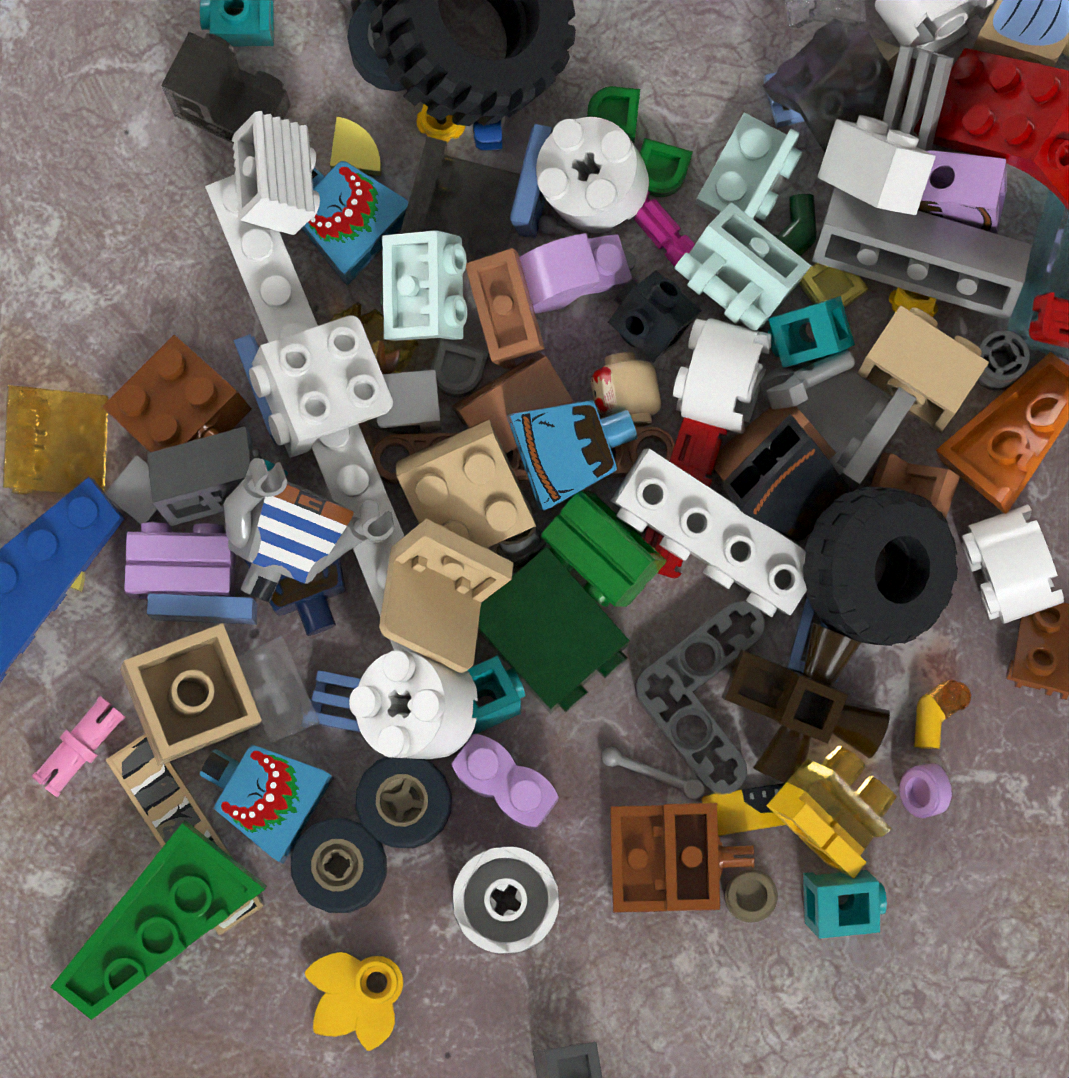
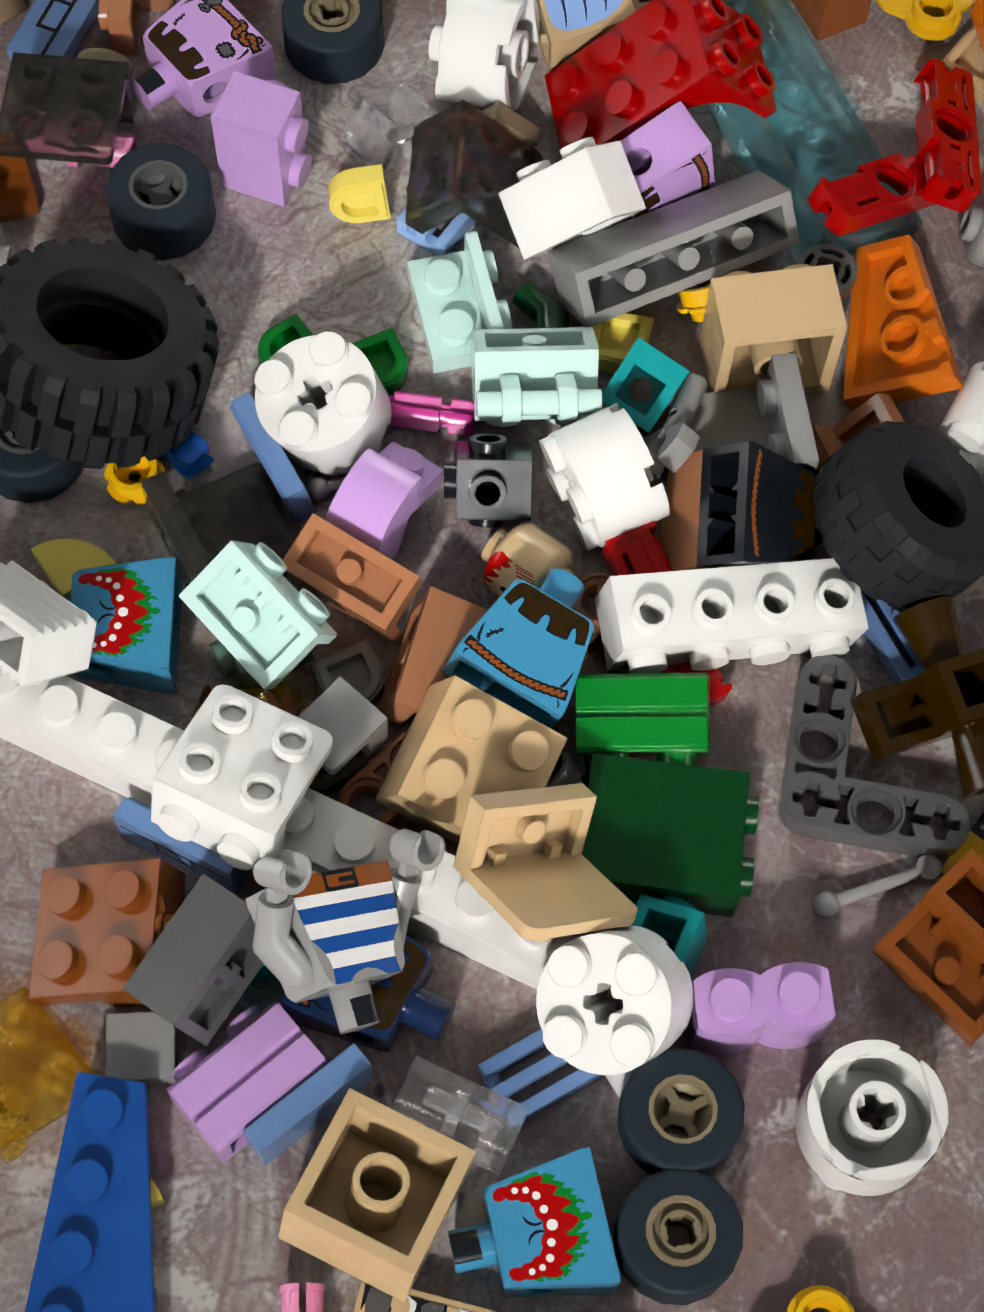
camera: 45 degrees left, 15 degrees down
(755, 38) = (359, 195): none -> light yellow tile
(899, 87) = (529, 85): light grey tile -> none

